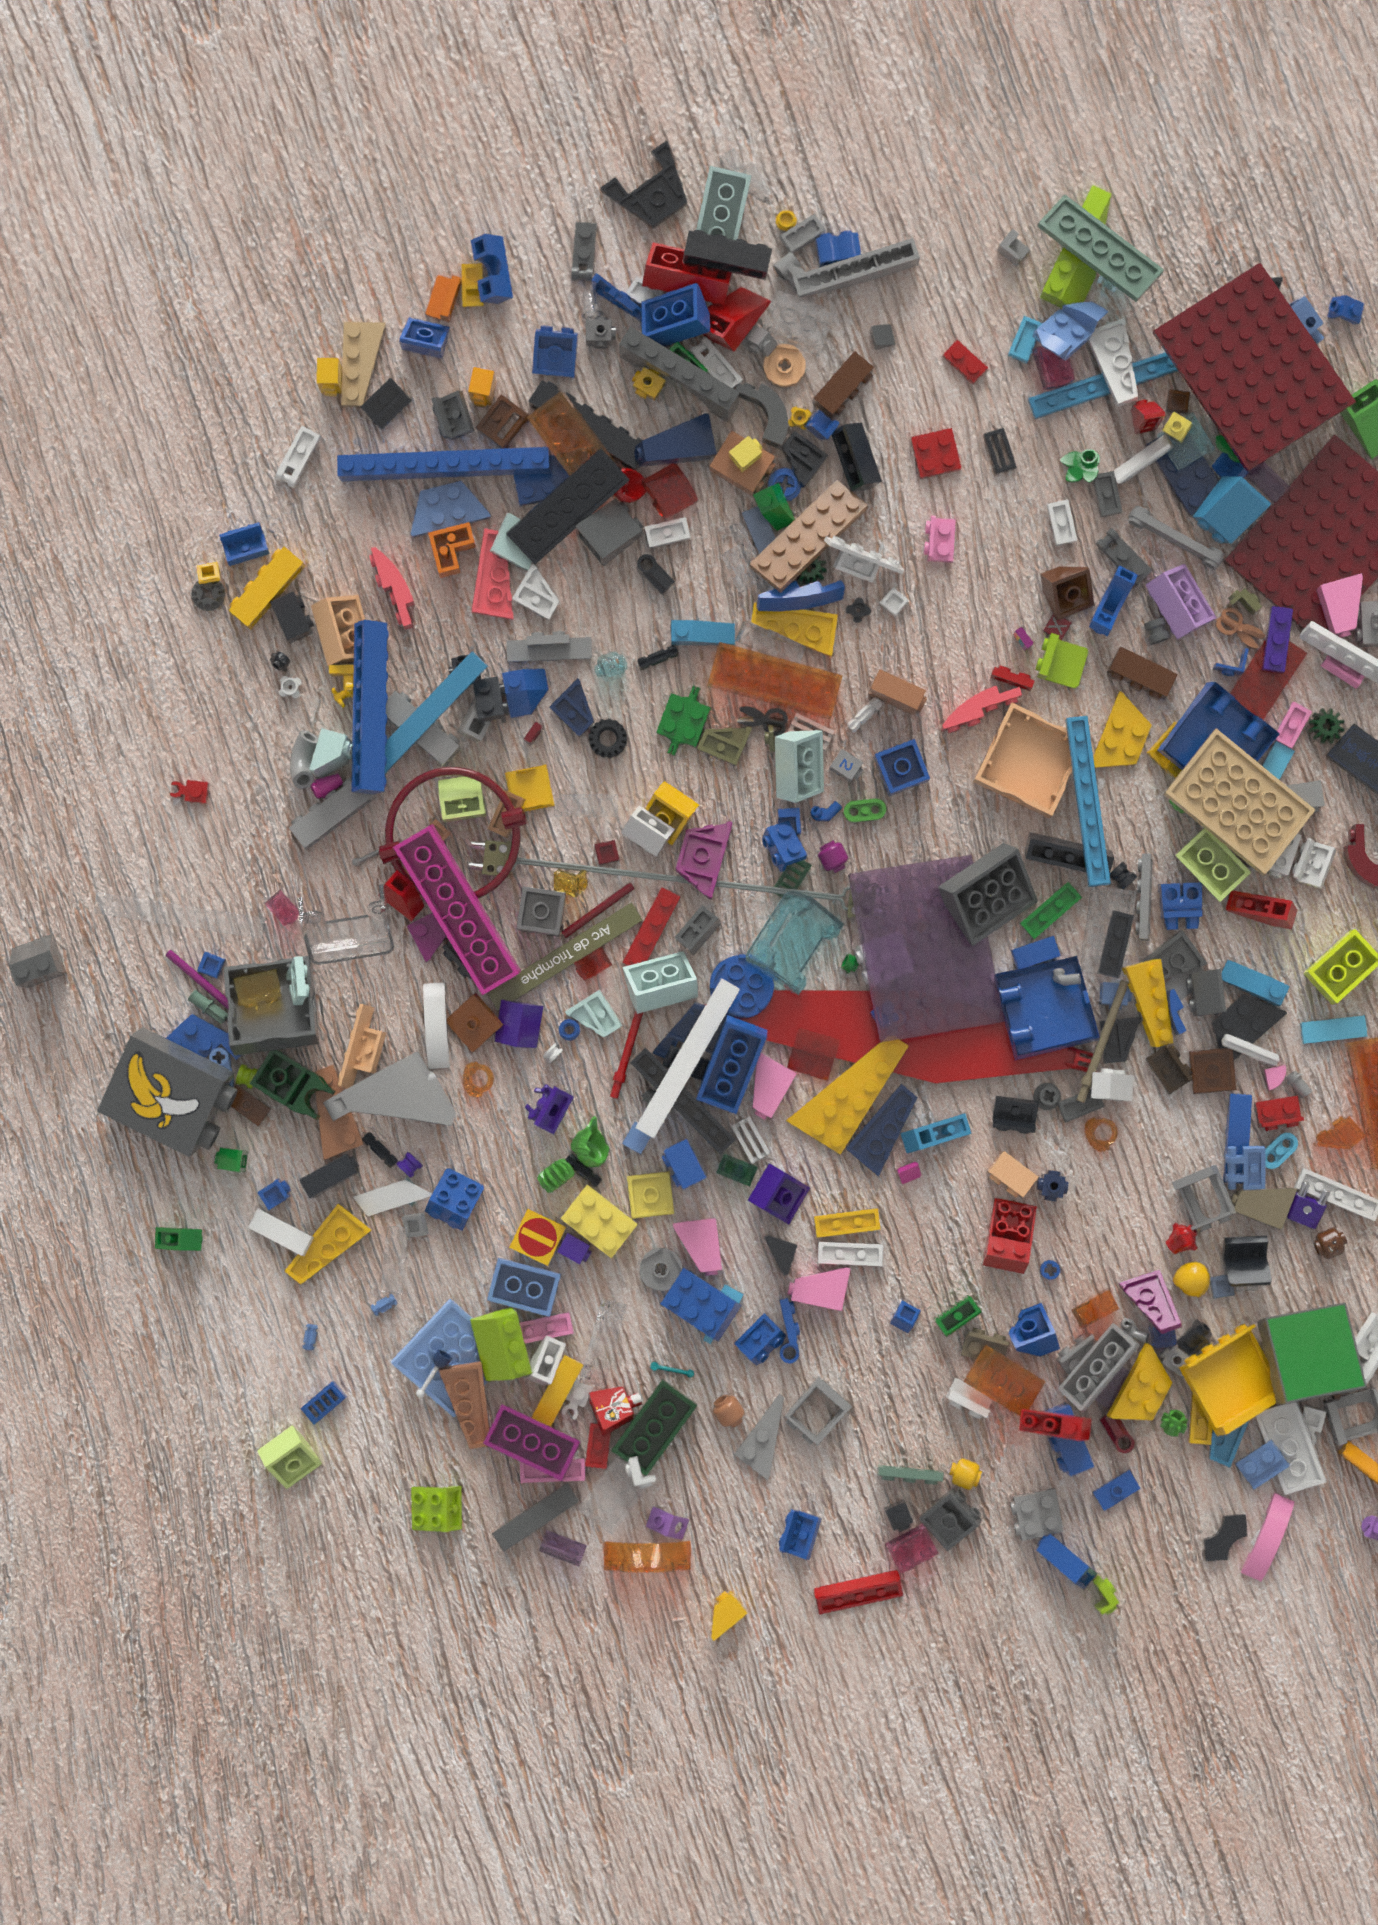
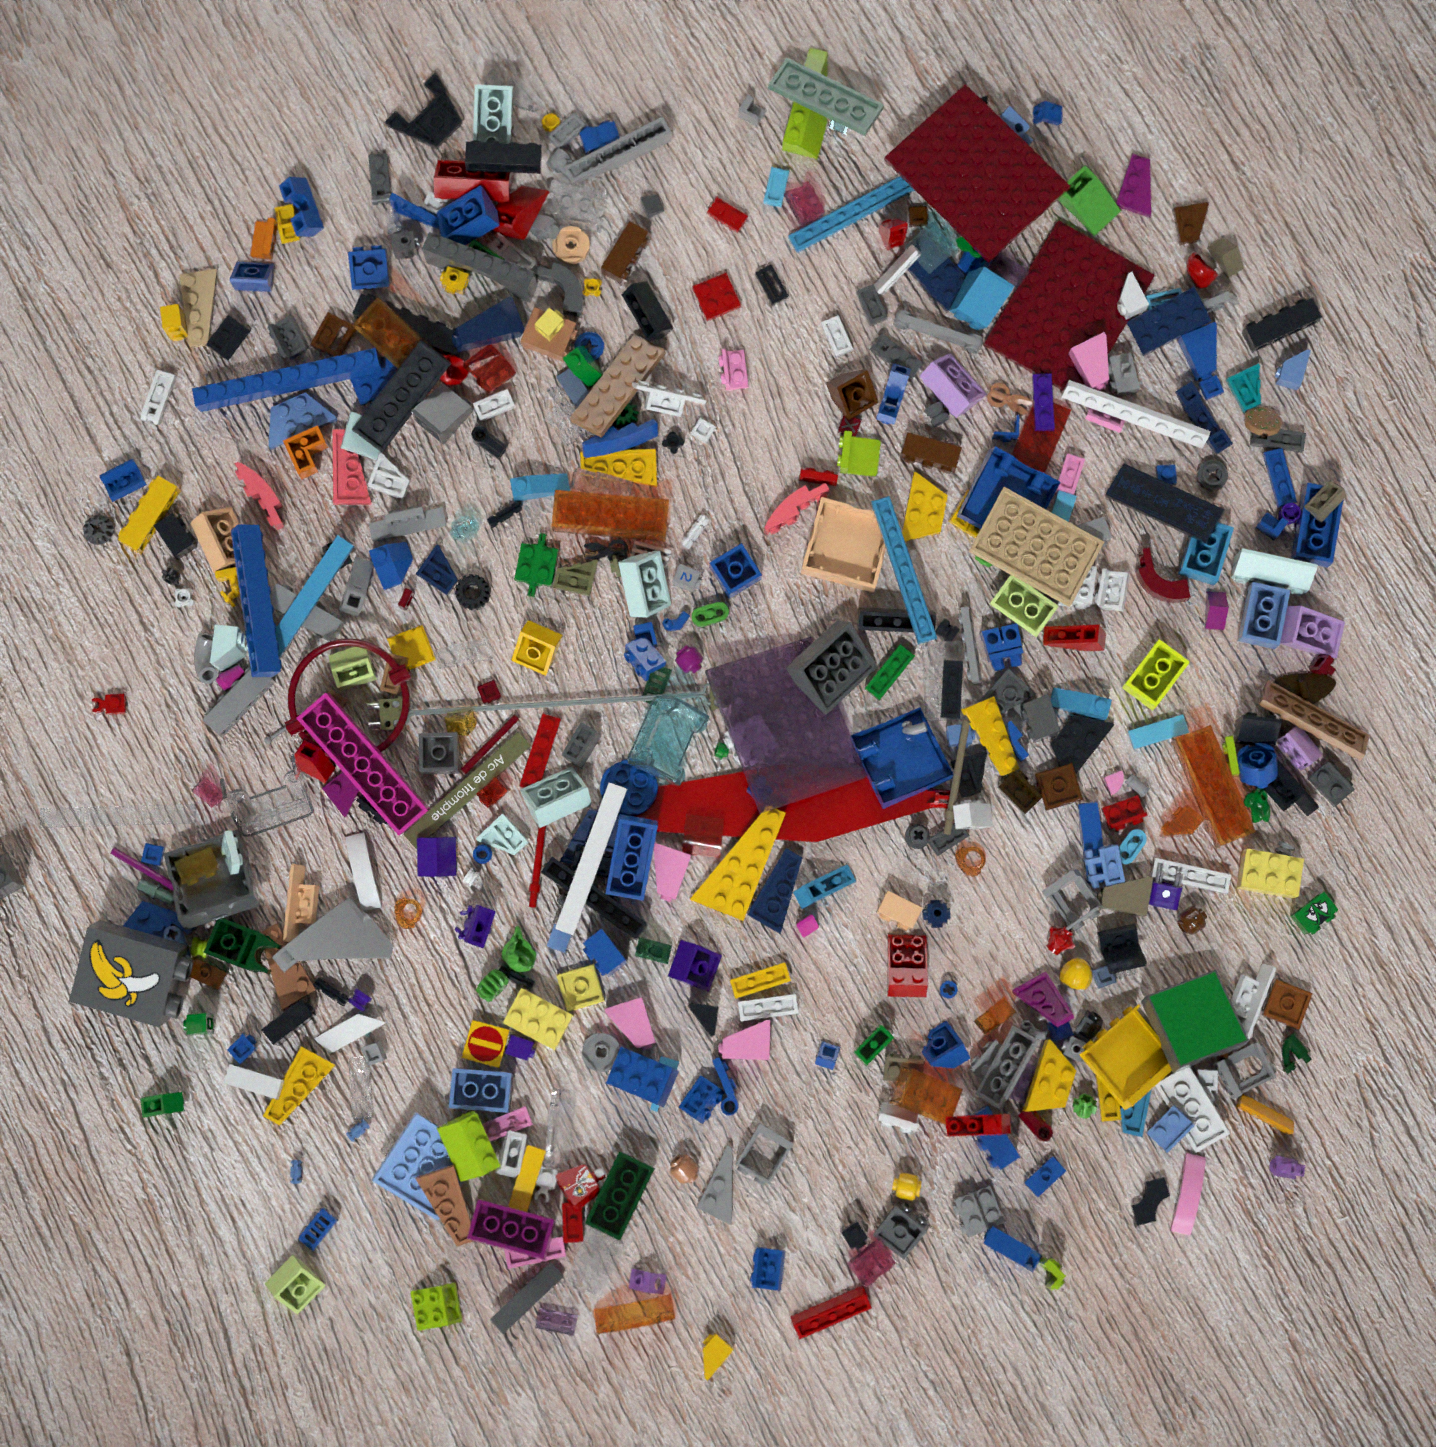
camera: 10 degrees left, 5 degrees down
(208, 572) = (95, 510): yellow slope -> none
(441, 1360) = (416, 1169): hinge -> none
(454, 1199) = (404, 1023): blue bracket -> none
(474, 1022) = (396, 862): dark orange plate -> none
(482, 387) = (309, 308): light orange brick -> none
(489, 699) = (361, 575): black bracket -> none
(634, 1471) = (607, 1237): white bracket -> none
(647, 831) = (521, 666): white brick -> none
(654, 1366) = (643, 1142): teal hinge -> none
(703, 855) = (574, 679): magenta wing -> none
(759, 1155) = (650, 910): white tile -> none
(803, 457) = (601, 320): black wing -> none
(821, 425) = (611, 290): blue panel -> none
(898, 692) = (720, 506): nougat brick -> none
(910, 1474) = (857, 1196): sand green plate -> none
(1015, 1114) = (891, 857): black bracket -> none
(1023, 638) = (821, 441): magenta tile -> none
(1035, 952) = (883, 711): blue slope -> none
(1069, 328) = (812, 169): medium blue piece -> none
(1080, 467) = (843, 285): green plate -> none
(1114, 358) = (856, 189): white wing -> none
(1177, 427) = (921, 235): light yellow brick -> none
(1249, 601) = (1013, 374): olive bracket -> none
(1250, 1050) = (1088, 762): white axle -> none
(1320, 719) = (1100, 462): dark green gear -> none

